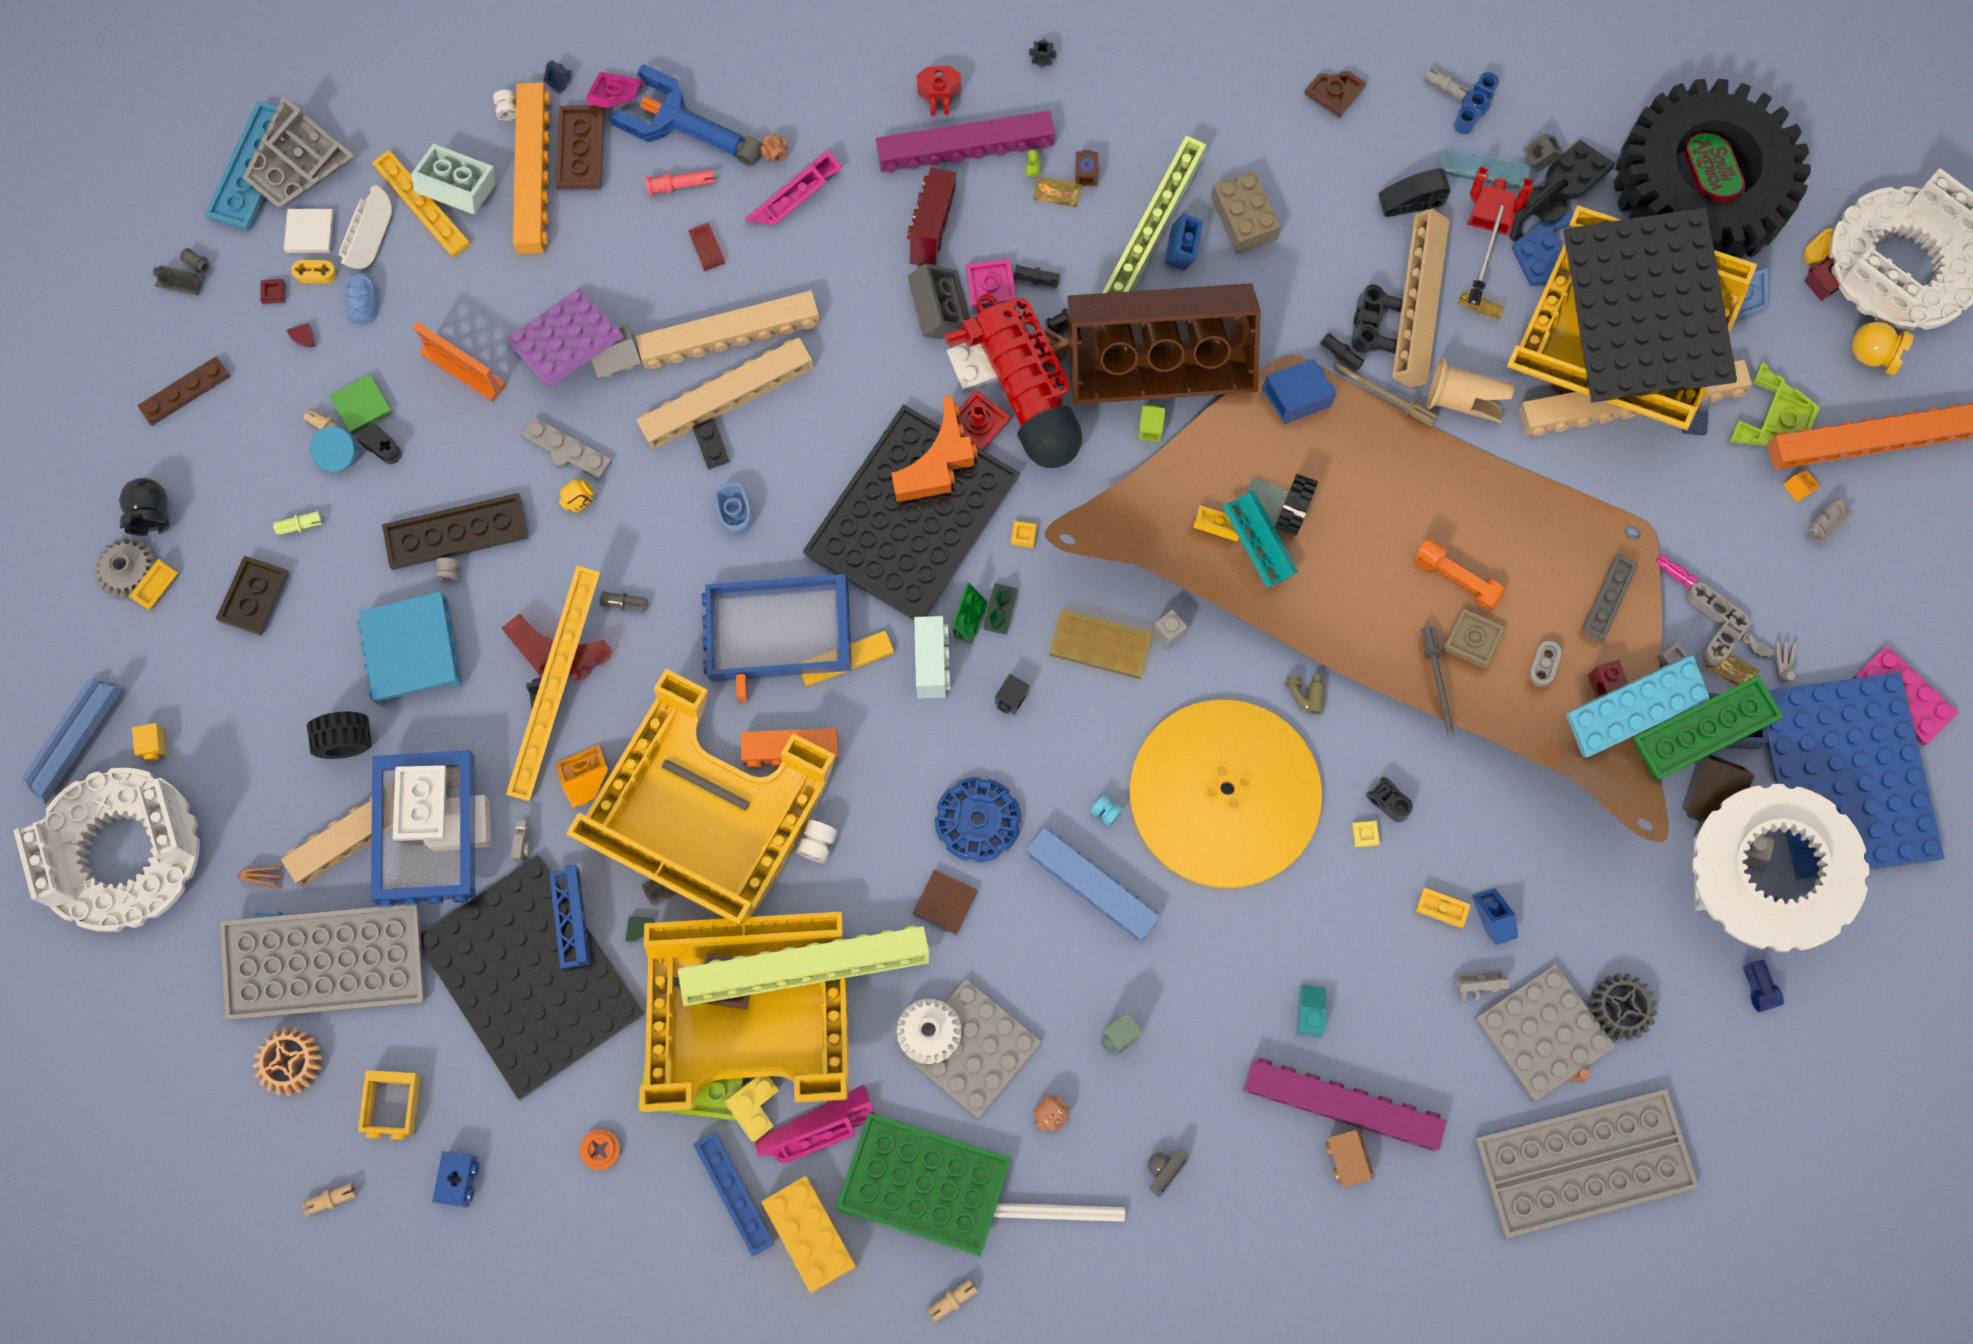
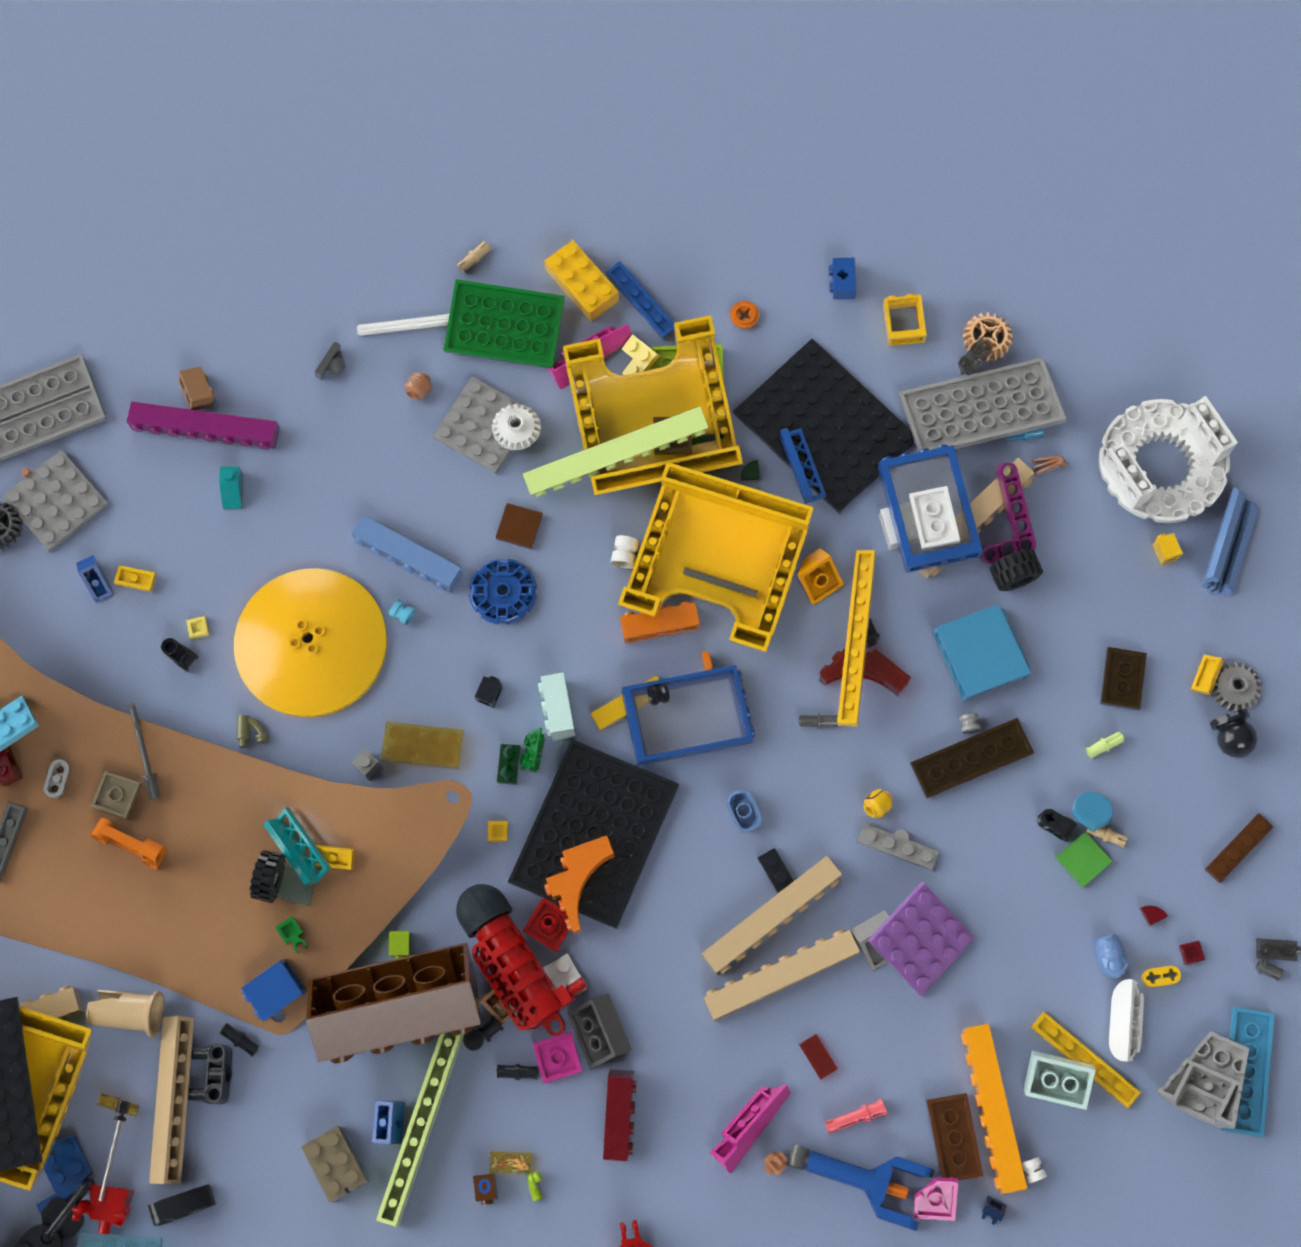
camera: 175 degrees right, 0 degrees up
(309, 231) = (1177, 1016): white tile -> none
(312, 1031) = (969, 362): none -> clear smoke hinge
(320, 778) = (1013, 518): none -> magenta beam
(329, 1199) = (931, 253): tan pin -> none
(458, 364) = (1006, 906): orange fence -> none
(521, 846) = (854, 514): light grey plate -> none
(806, 649) = (658, 694): none -> black wheel
(965, 141) = (599, 1199): magenta brick -> none
(1120, 1035) = (372, 444): sand green brick -> none
(1274, 446) = (290, 932): none -> green plate
(1413, 408) = (175, 994): dark tan piece -> none
(1473, 982) = (103, 528): light grey plate -> none

